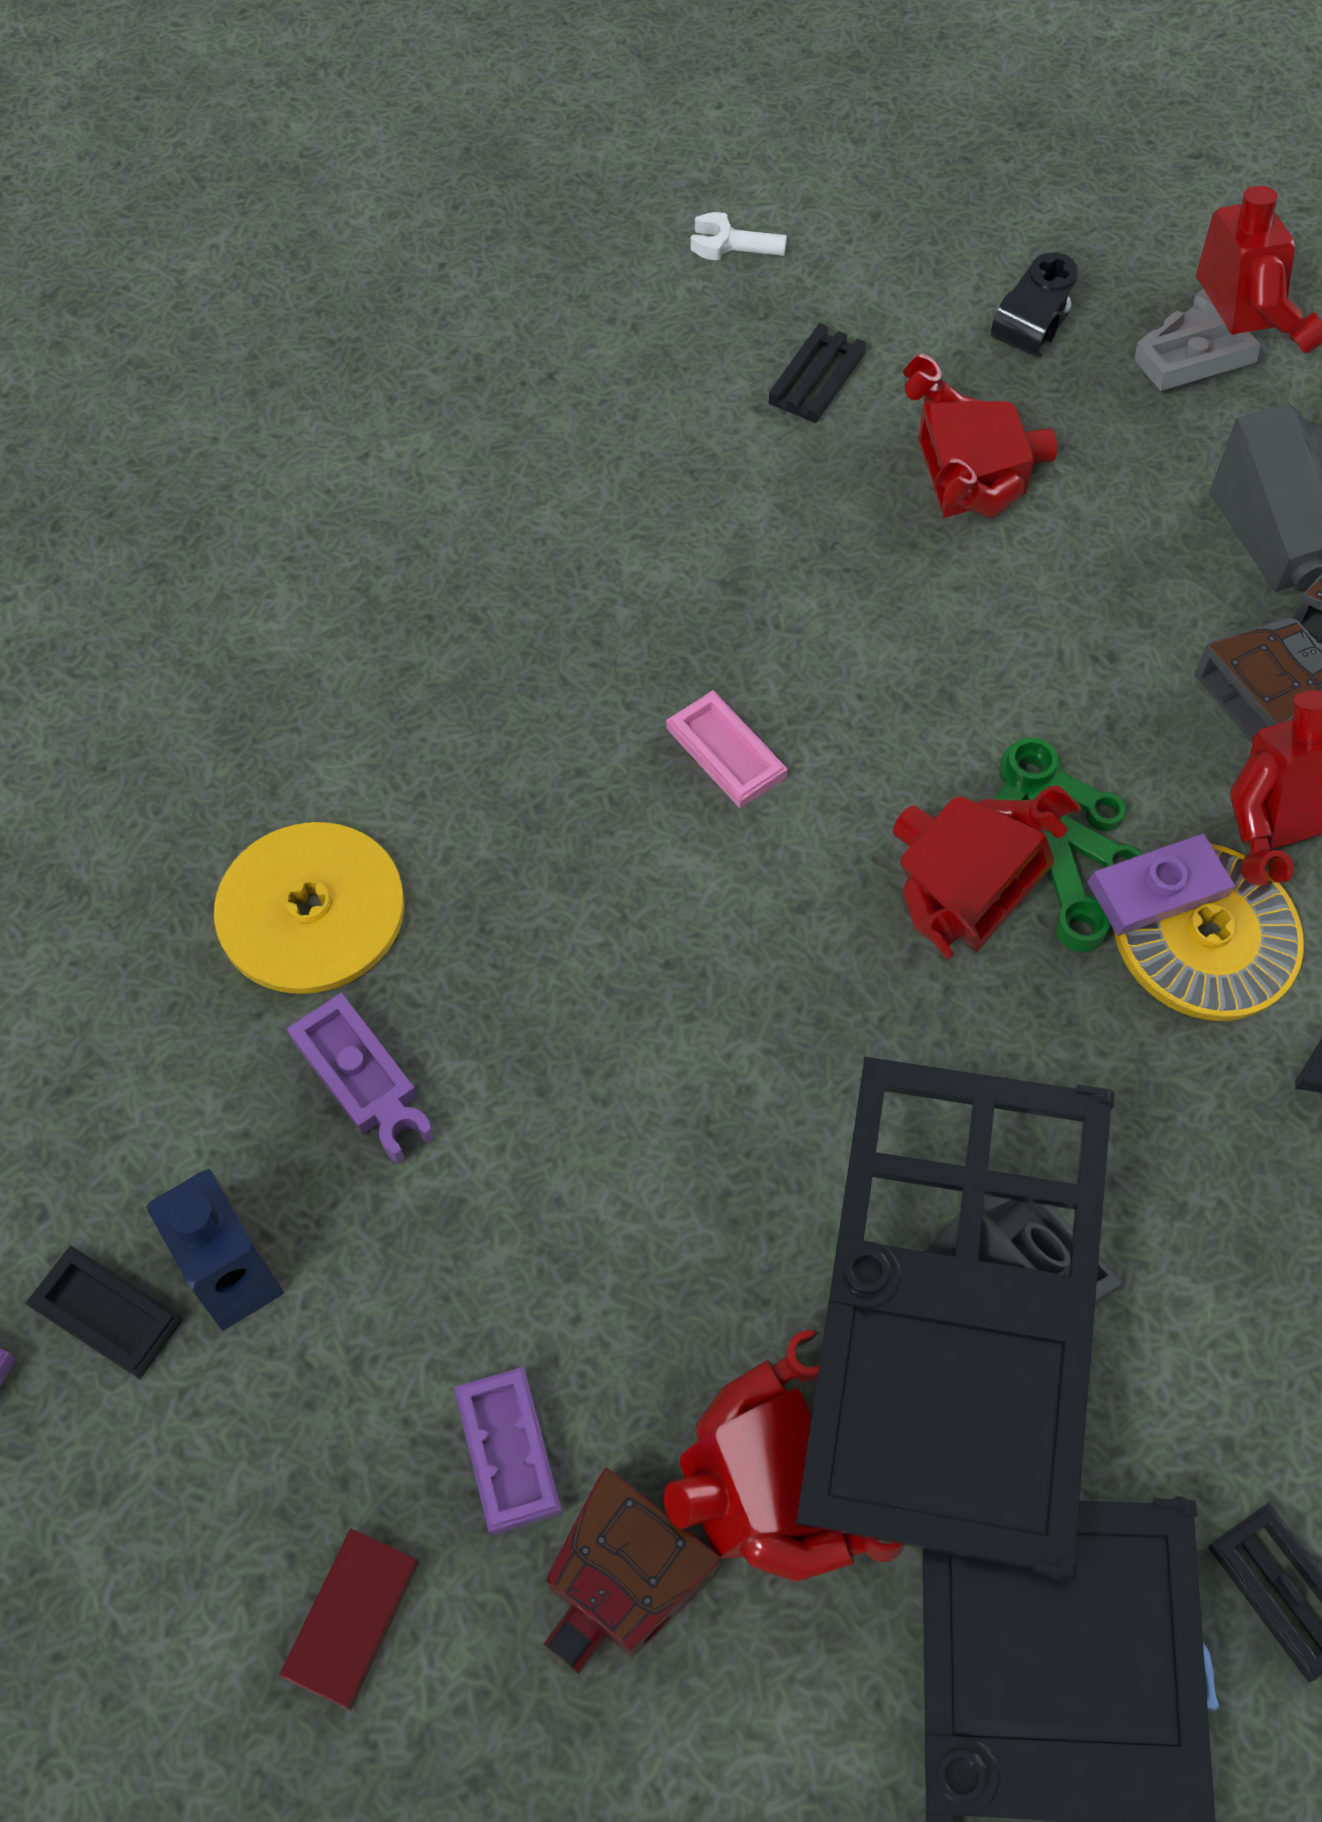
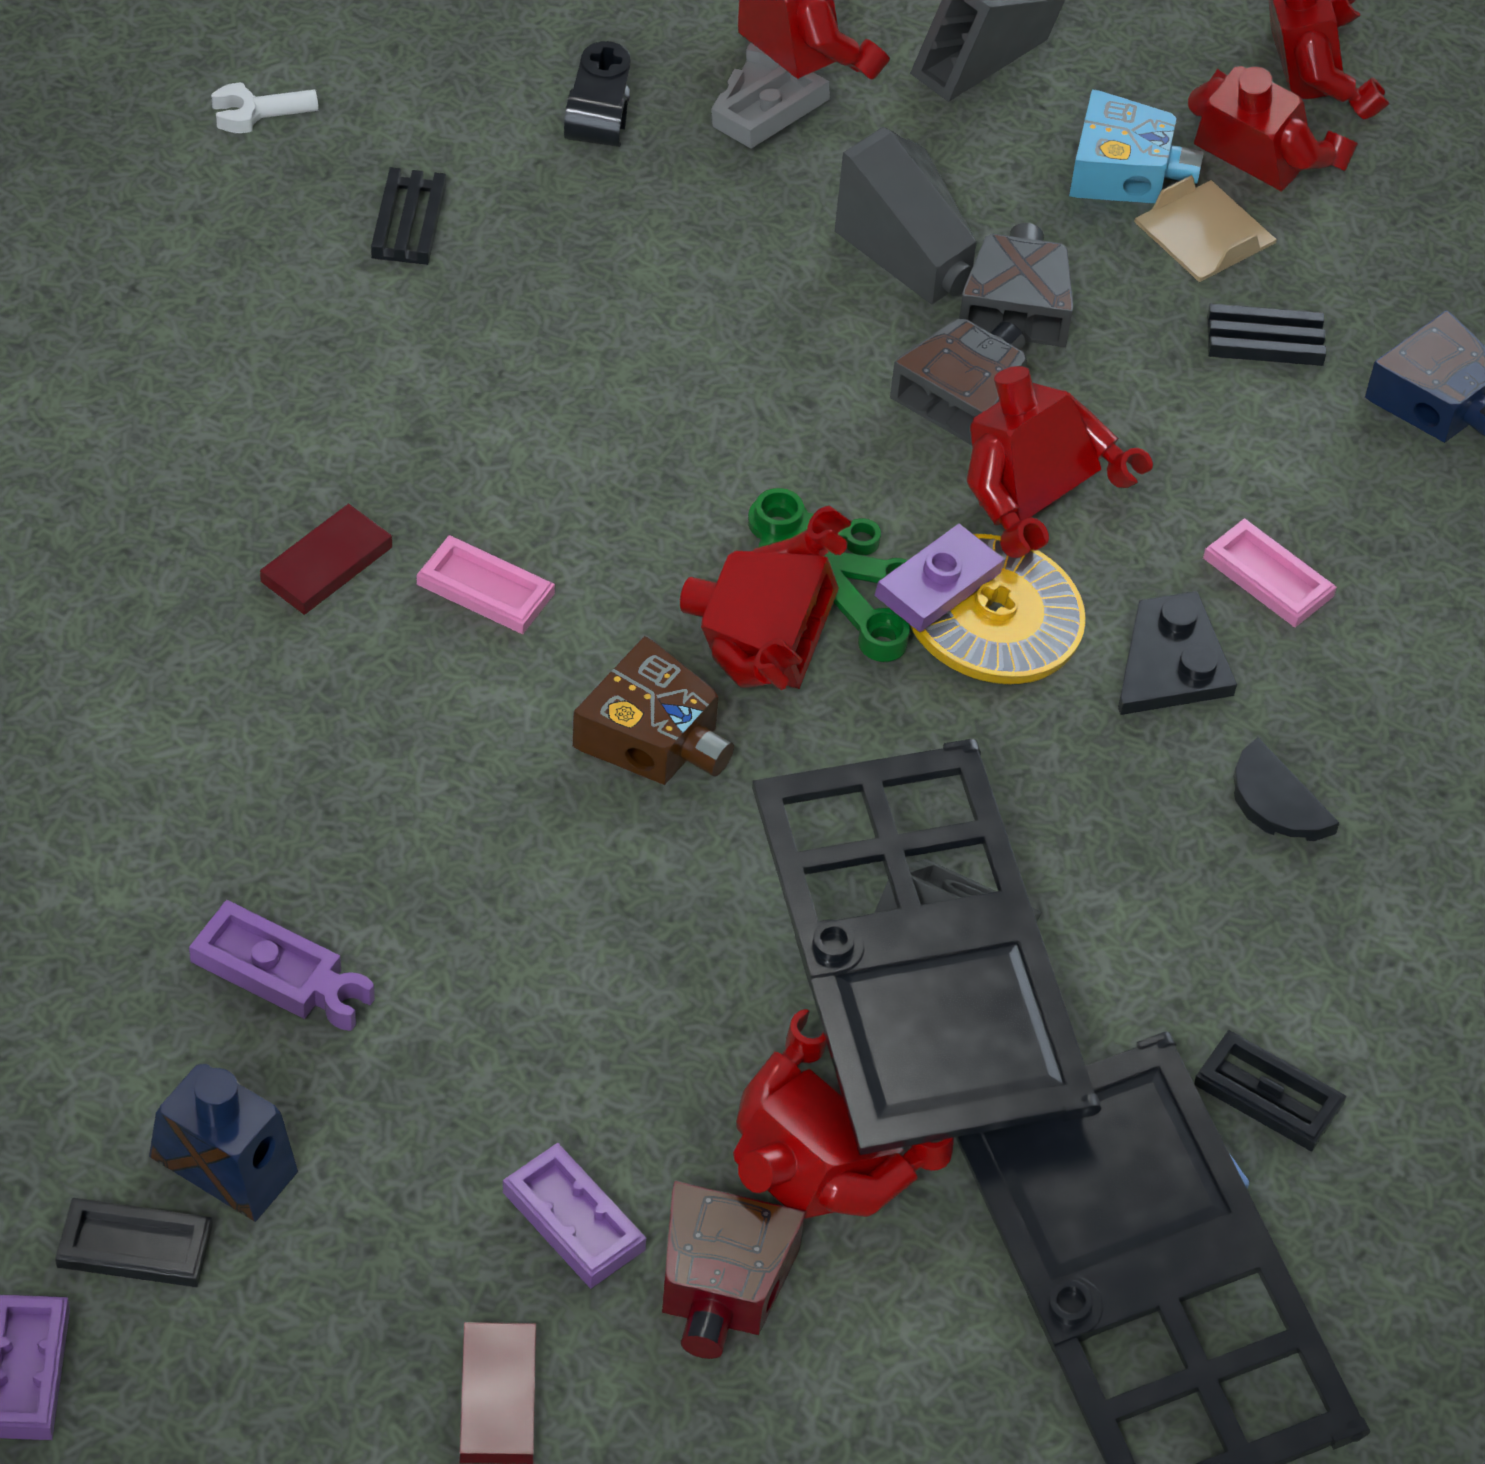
camera: 30 degrees left, 10 degrees down
(333, 943) = (103, 864): yellow piece -> none
(595, 678) = (326, 559): none -> dark red tile
(816, 938) = (652, 717): none -> reddish brown torso
(973, 446) = (599, 245): red torso -> none

